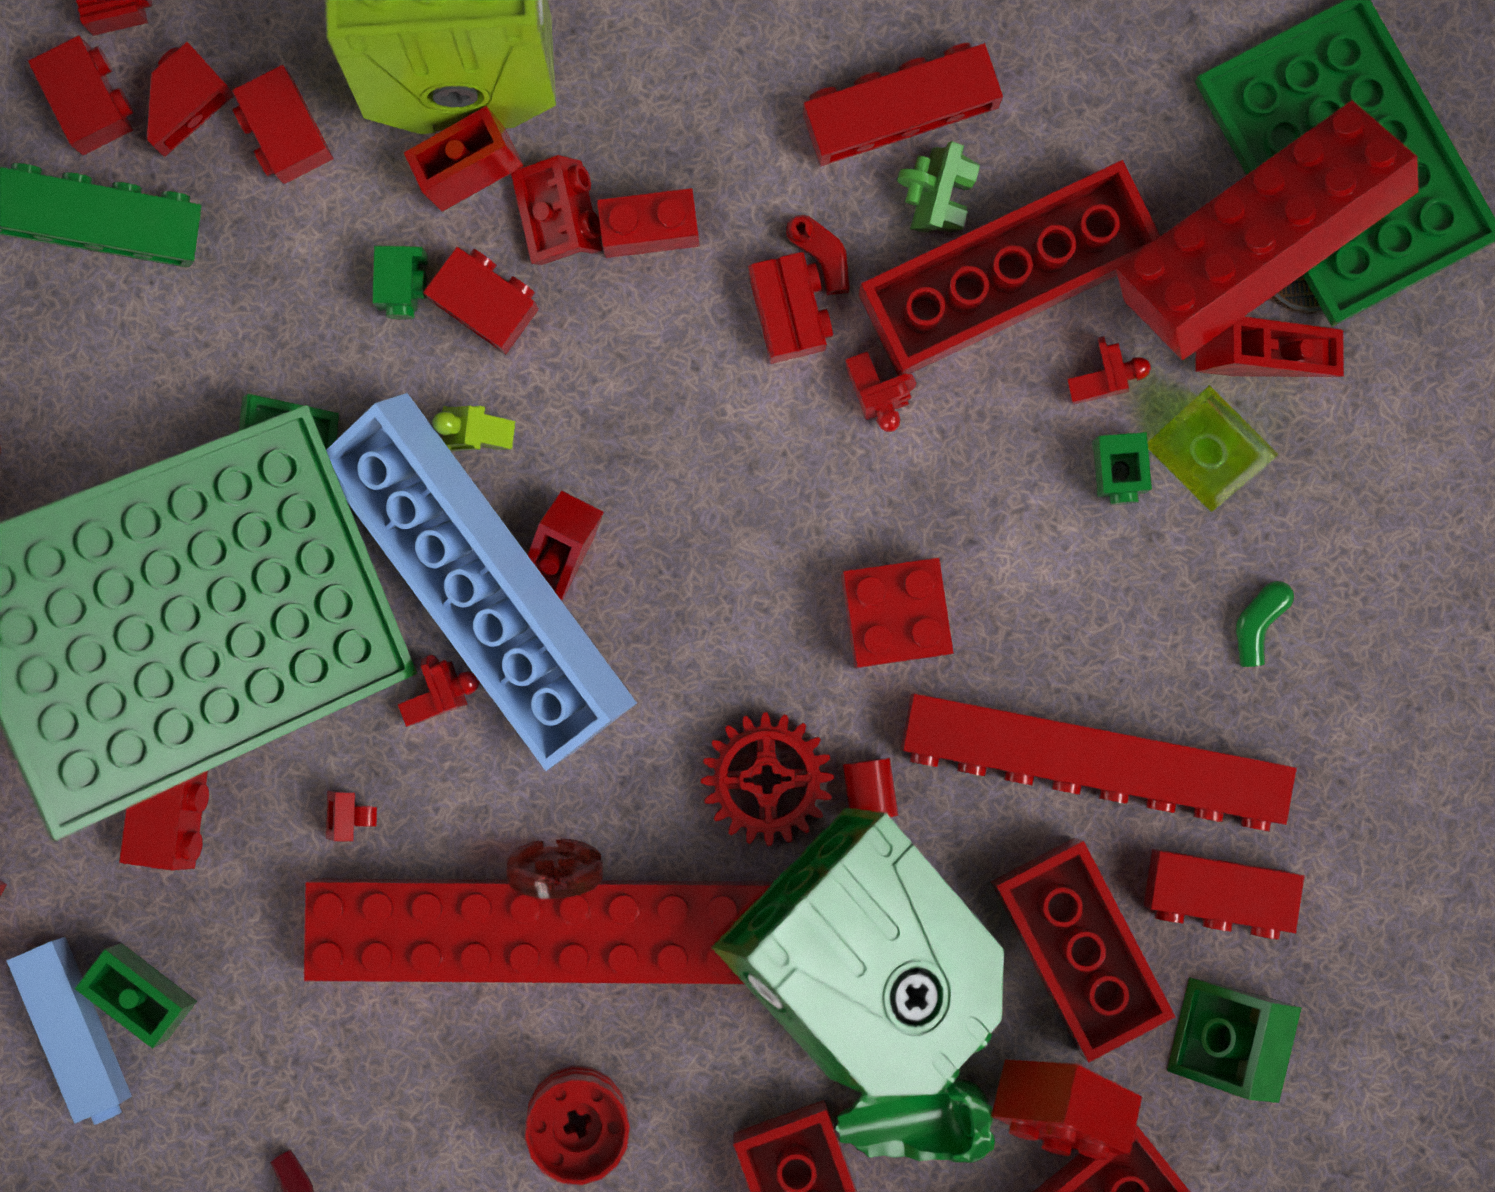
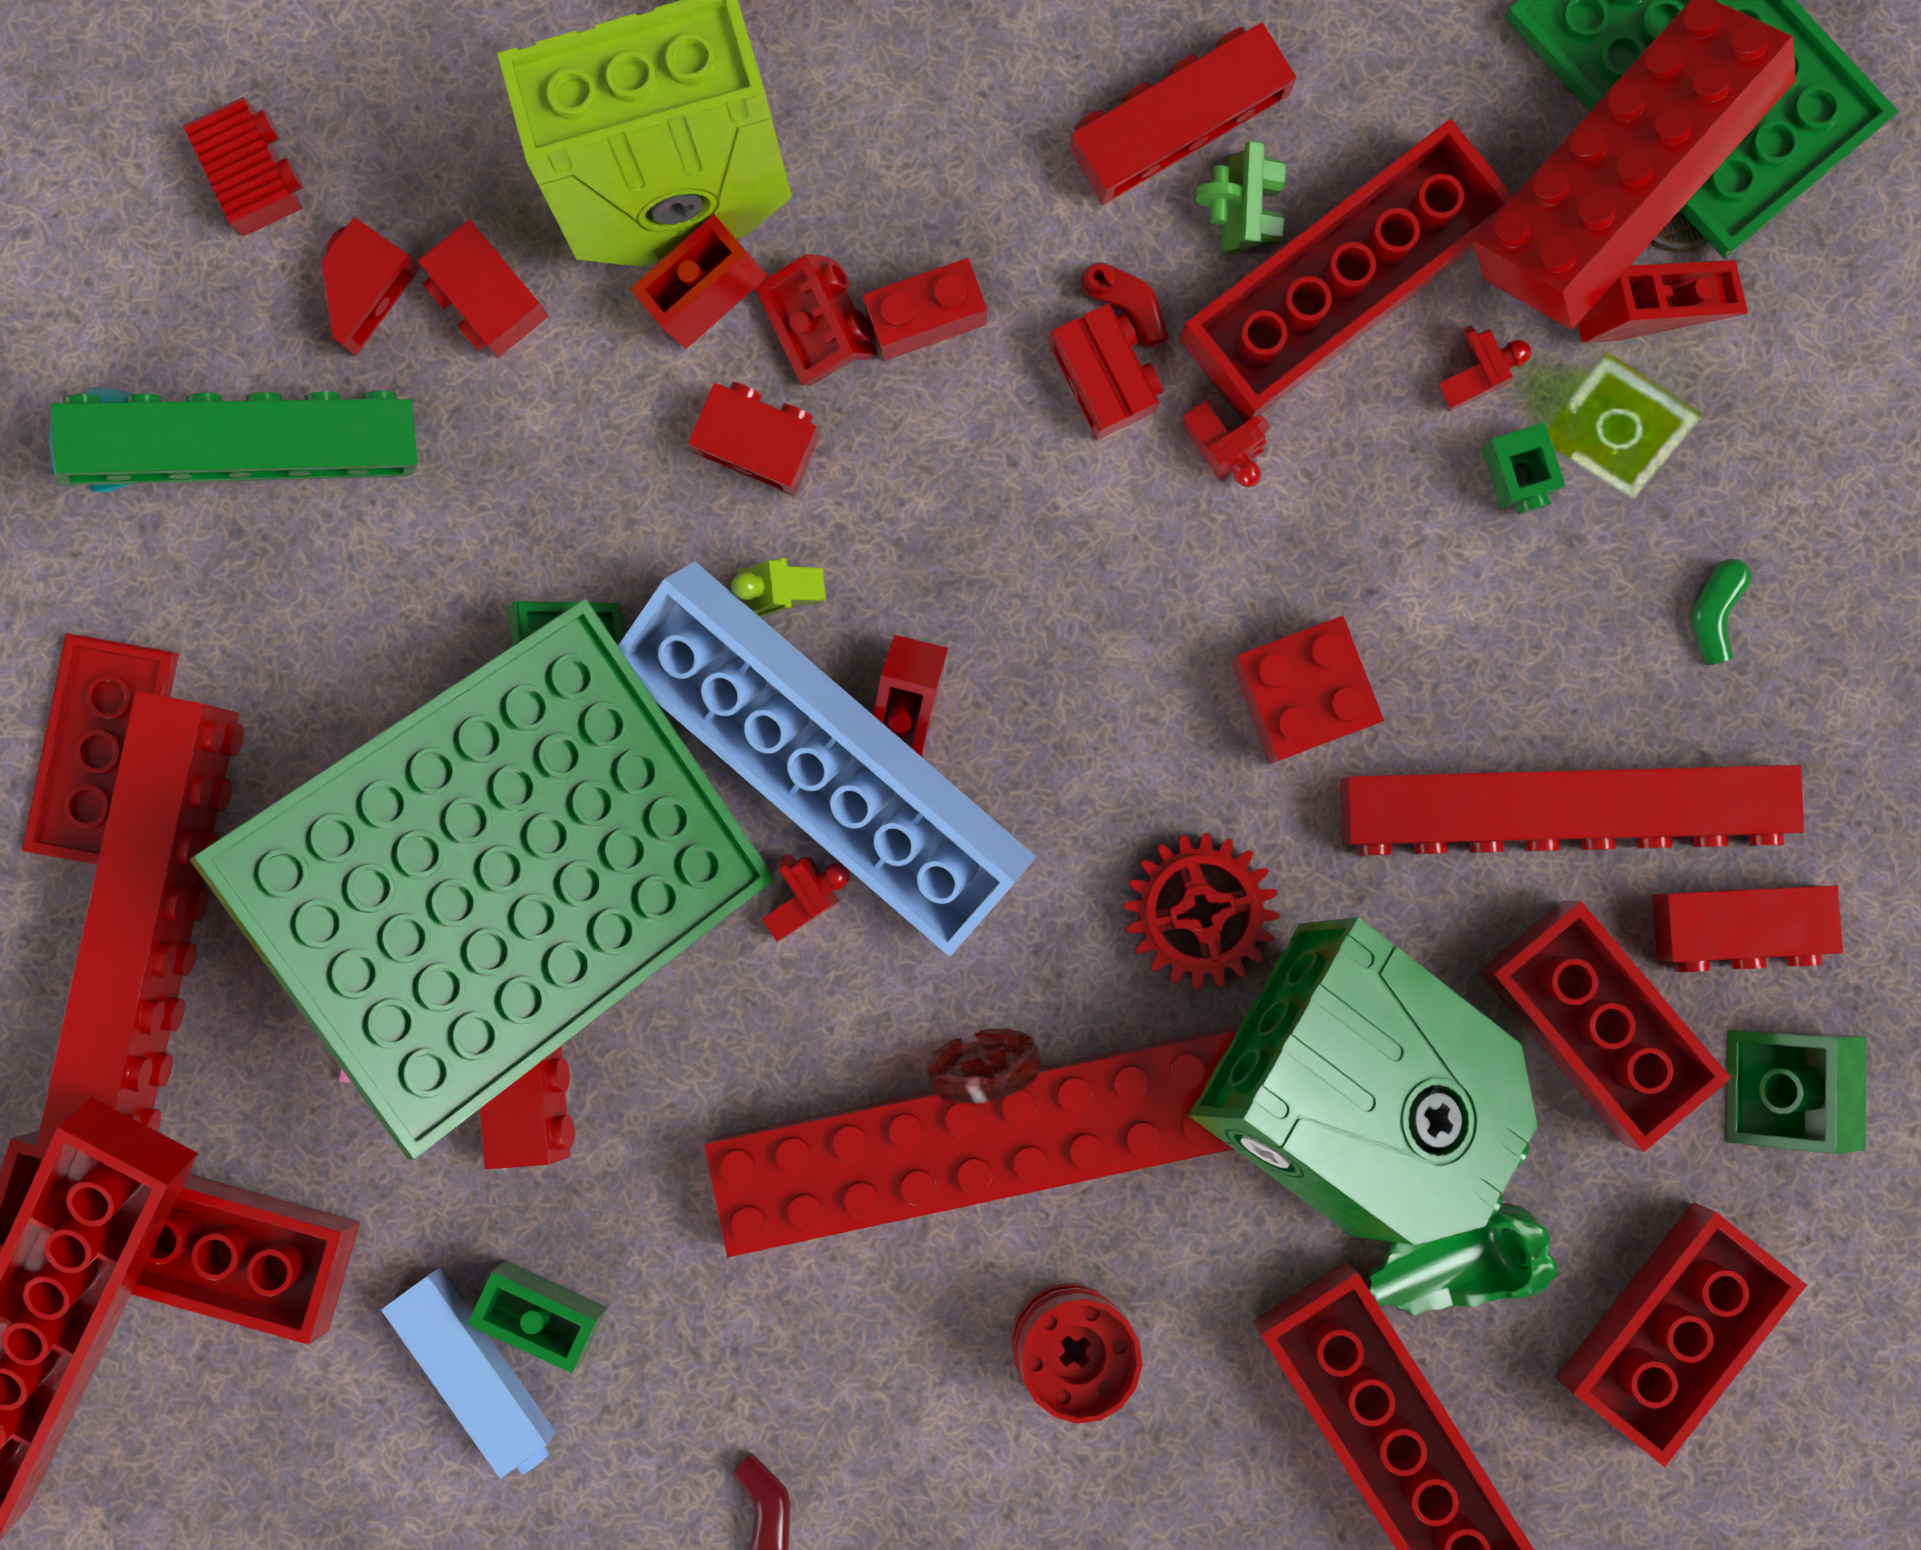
camera: 10 degrees left, 0 degrees up
(81, 94) = (245, 304): red brick -> none
(344, 815) = (729, 1058): red tile -> none
(398, 280) = (654, 436): green brick -> none
(871, 786) = (1320, 892): red brick -> none
(1066, 1108) = (1631, 1209): red brick -> none

